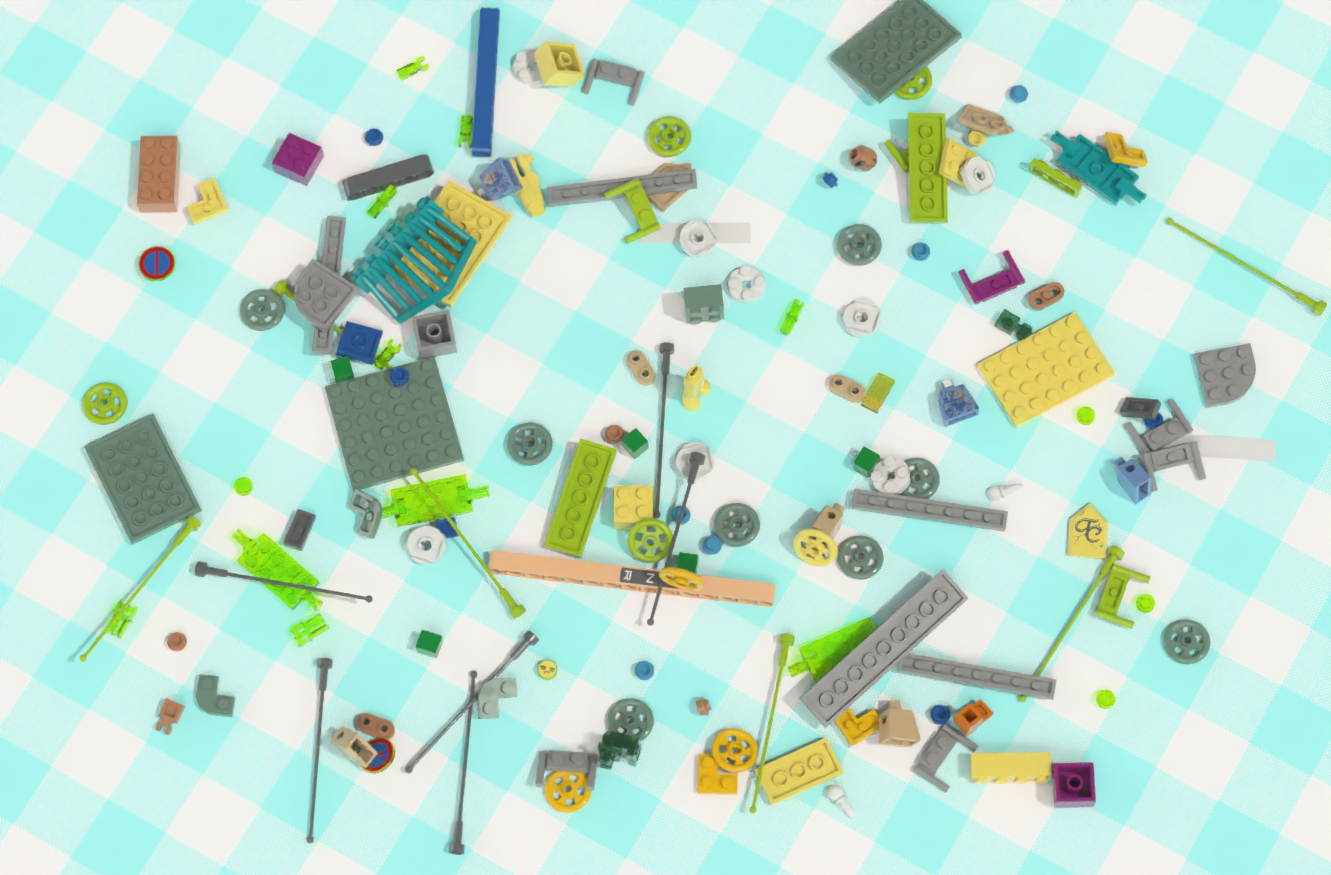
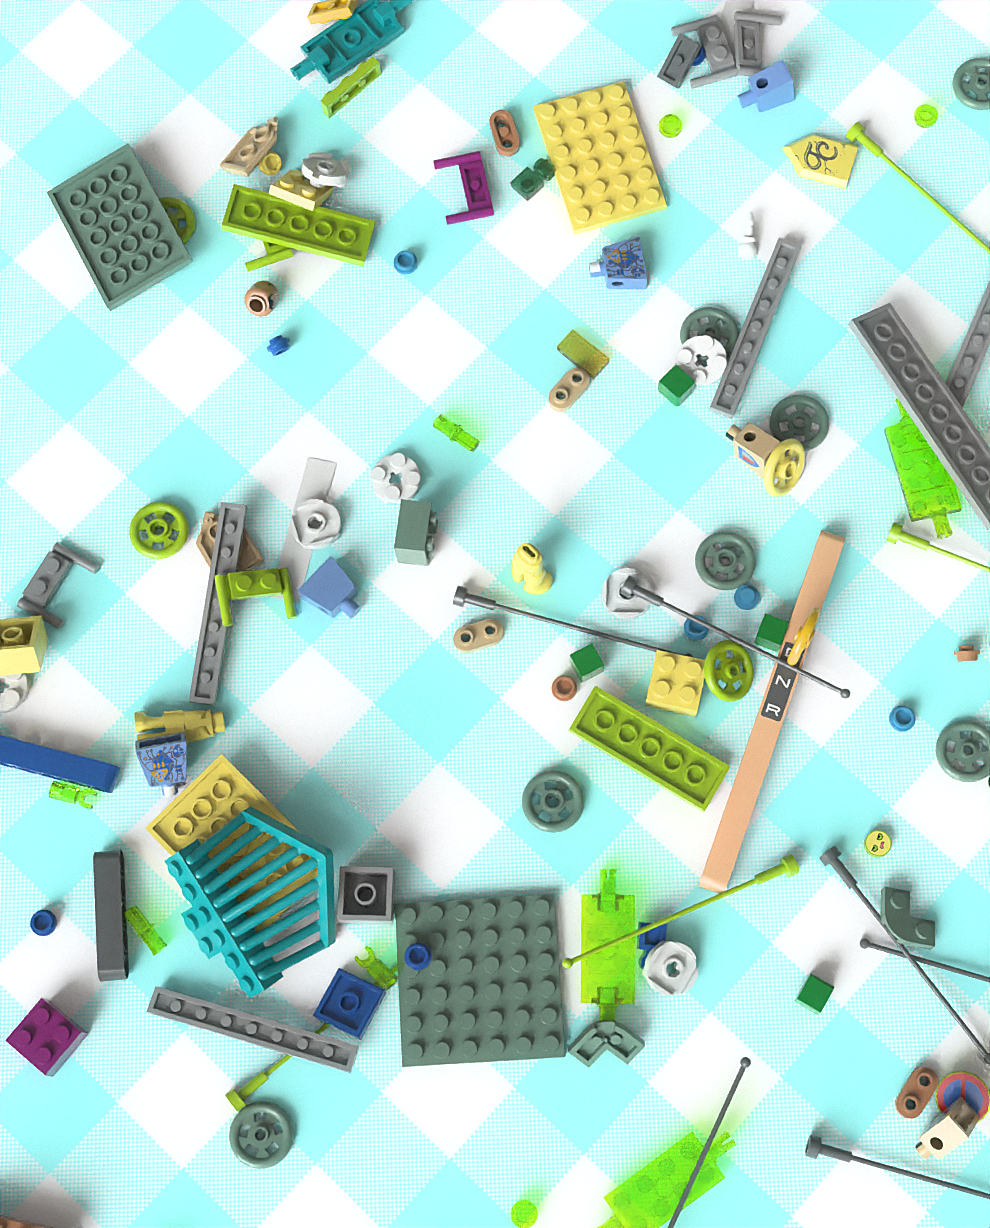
camera: 75 degrees left, 5 degrees up
(211, 205) = (80, 1177): light yellow plate -> none
(299, 530) = (609, 1144): dark grey plate -> none
(312, 627) = (761, 1160): clear neon green arm -> none
(322, 295) = (270, 1041): light grey plate -> none
(342, 369) = (385, 1035): green piece -> none
(650, 260) = (330, 590): none -> medium blue torso
(858, 230) = (375, 313): sand green plate -> none
(865, 328) = (475, 337): white plate -> none
(1018, 94) = (225, 104): dark azure plate -> none
(1114, 594) = (907, 145): lime plate -> none

